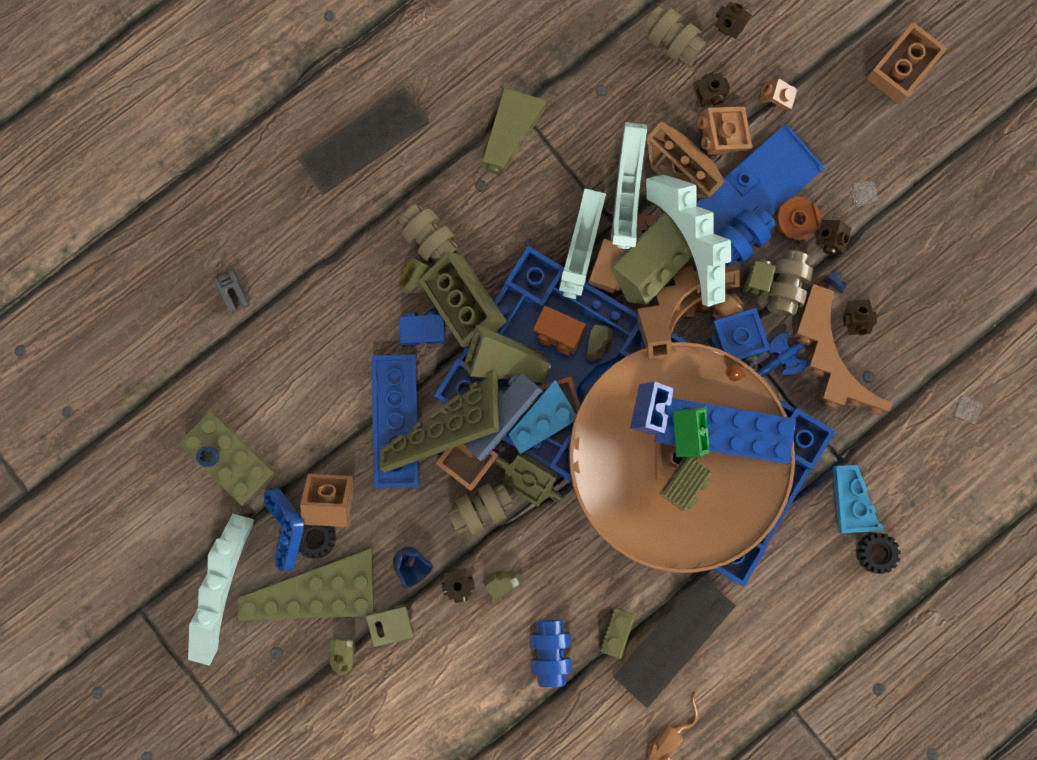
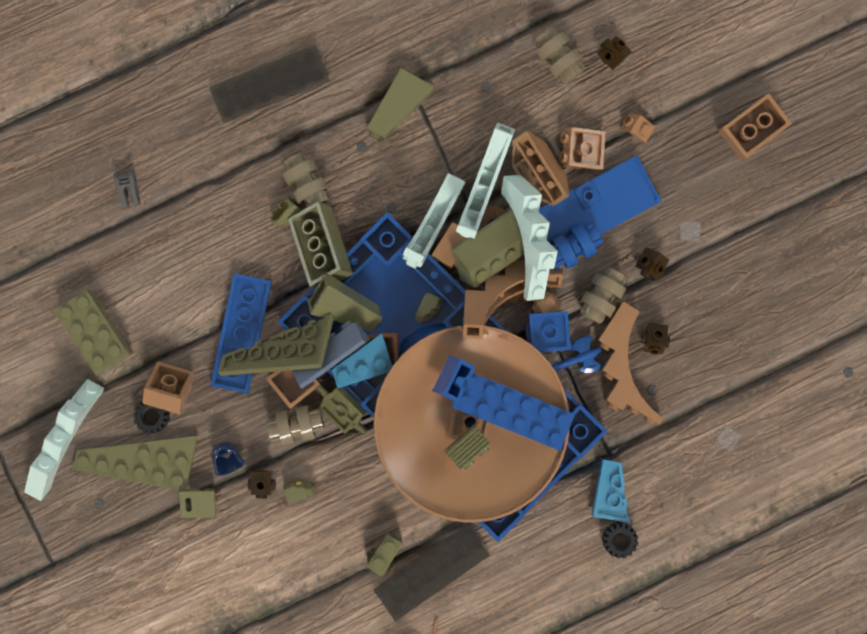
camera: 10 degrees right, 5 degrees up
(209, 450) = (76, 322): dark blue bush -> none
(291, 526) = (133, 402): blue beam -> none
(341, 655) = (152, 518): olive rock -> none
(422, 329) = (281, 260): blue brick -> none
(550, 662) = (323, 565): blue piece -> none
(559, 331) = (397, 291): dark orange piece -> none
(691, 432) = (482, 406): green hinge -> none
(712, 89) = (574, 112): dark brown brick -> none
(735, 372) = (533, 363): dark orange hinge -> none
(755, 360) = (553, 356): dark grey arm -> none
(758, 279) = (578, 286): olive brick -> none
(804, 208) = (633, 248): dark orange plate -> none
(833, 280) = (644, 302): dark blue tile -> none

